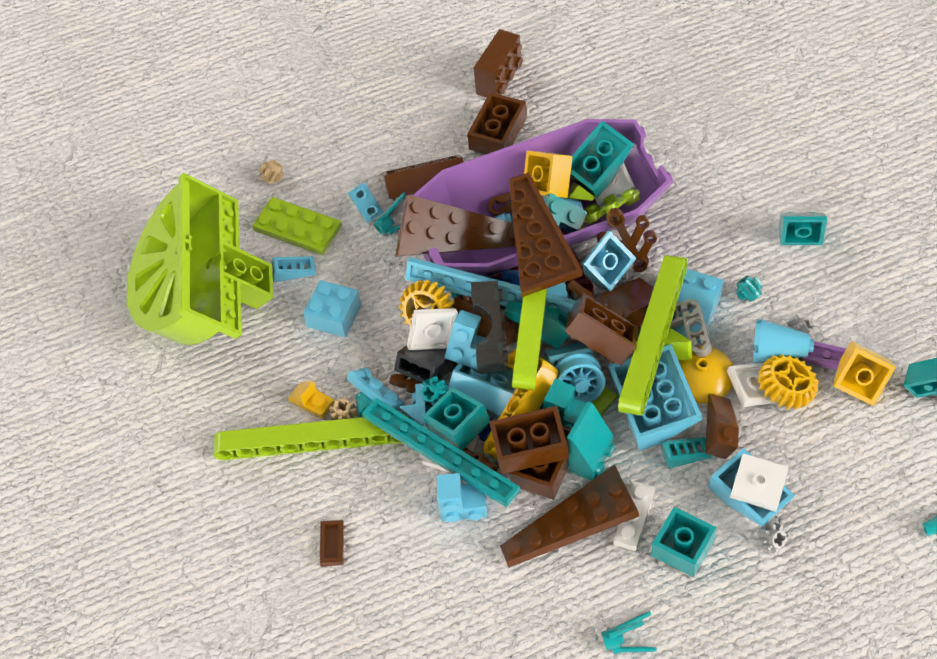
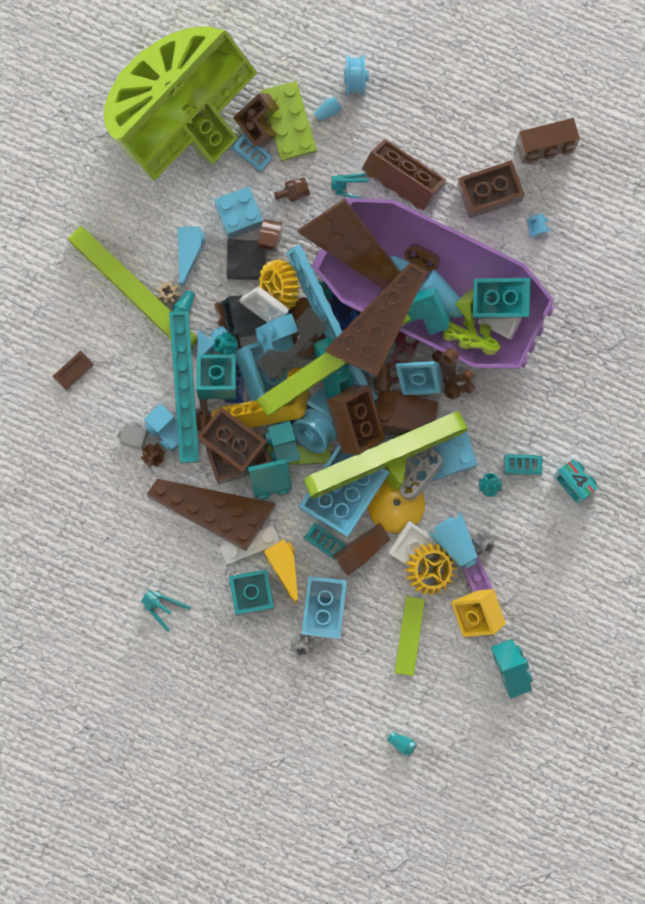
camera: 40 degrees right, 25 degrees up
(269, 241) = (254, 119): none -> reddish brown brick
(271, 171) = (315, 61): tan gear -> none
(311, 400) = (161, 262): yellow slope -> none
(312, 149) = (355, 75): none -> medium azure wheel
(317, 190) = (328, 109): none -> medium azure cone
(320, 365) = (189, 248): none -> medium azure slope
(356, 258) = (294, 190): none -> reddish brown piece
(365, 202) = (343, 155): medium azure hips -> none
(373, 387) = (201, 299): medium azure plate -> none
(376, 293) = (270, 235): none -> reddish brown brick
(376, 331) = (244, 259): none -> black brick
(442, 535) = (133, 435): none -> light grey brick
(475, 530) = (153, 455): none -> reddish brown gear
(549, 172) = (457, 273): yellow brick -> none
(557, 117) = (537, 225): none -> medium azure tile
(689, 494) = (282, 561): none -> yellow slope
(747, 269) = (507, 464): none -> teal slope
(759, 482) = (328, 610): white plate -> none
(837, 446) = (409, 636): none -> lime tile

